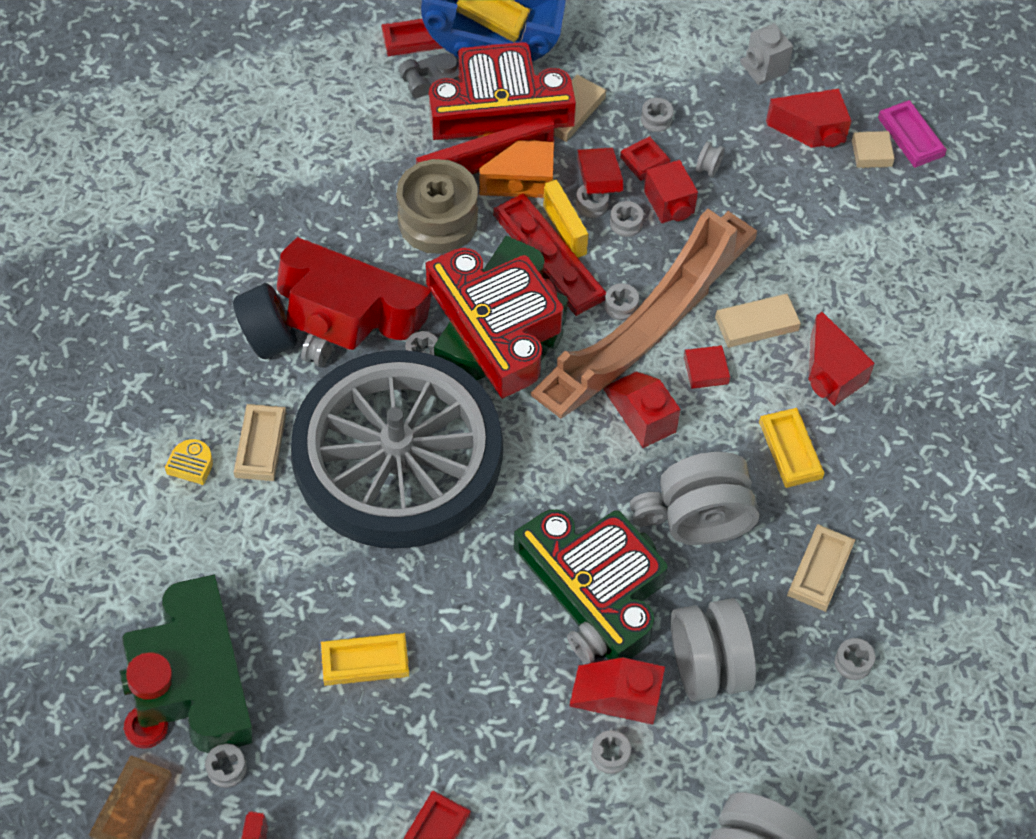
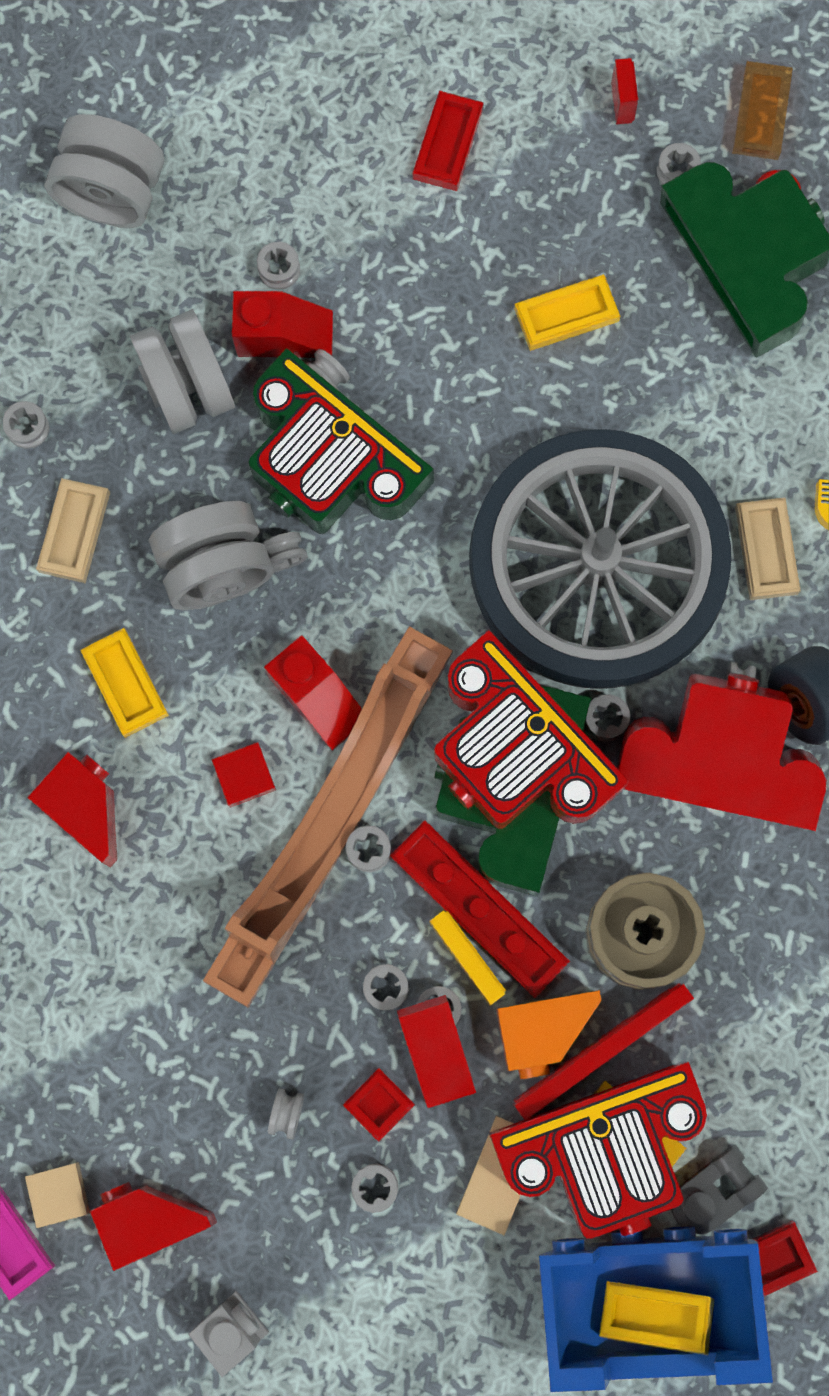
camera: 175 degrees right, 20 degrees up
(149, 675) = (787, 199): red tile -> none
(670, 192) = (330, 1036): red brick -> none
(757, 320) = (187, 861): tan tile -> none

